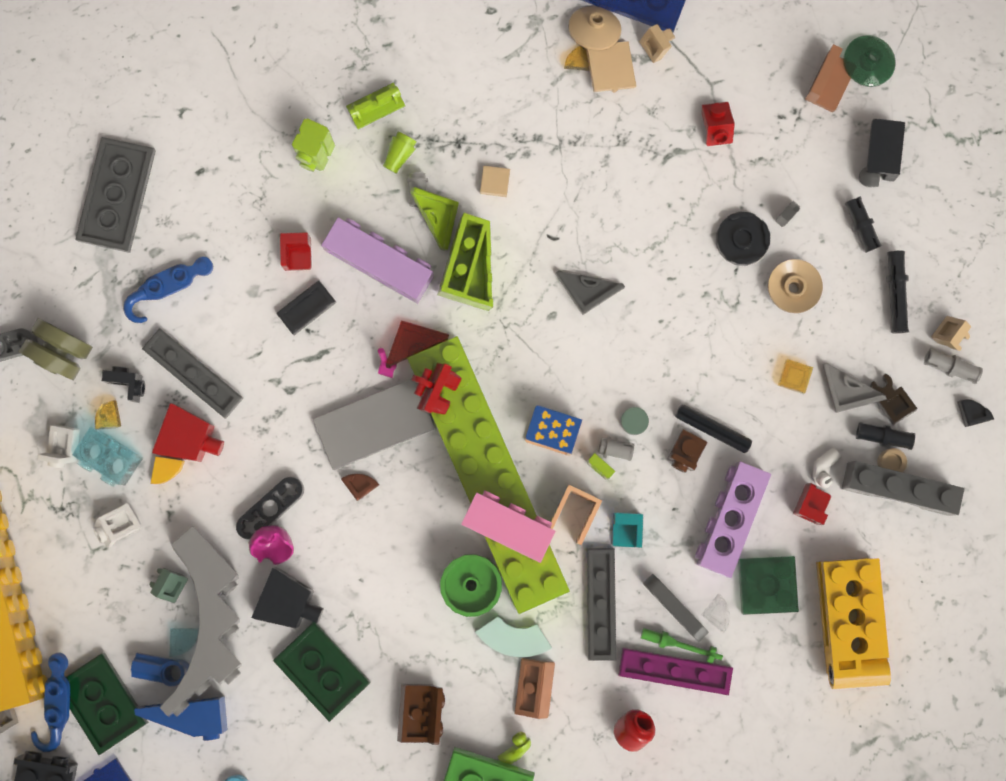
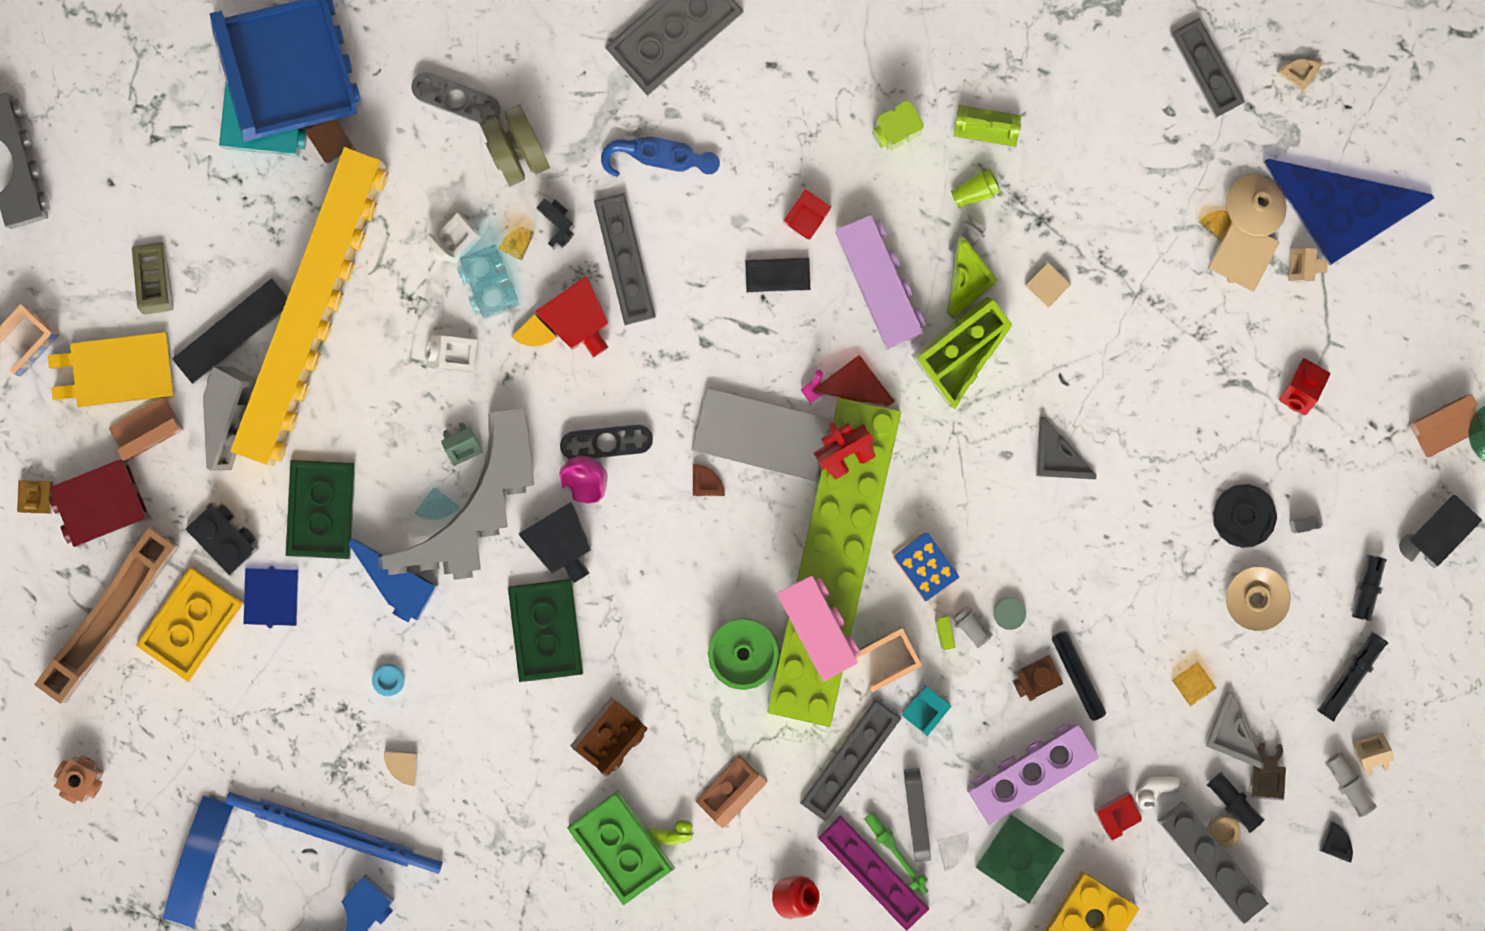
camera: 35 degrees right, 5 degrees up
(55, 703) = (281, 479): blue piece -> none
(157, 668) = (396, 516): blue piece -> none
(512, 640) = (743, 733): light aqua tile -> none

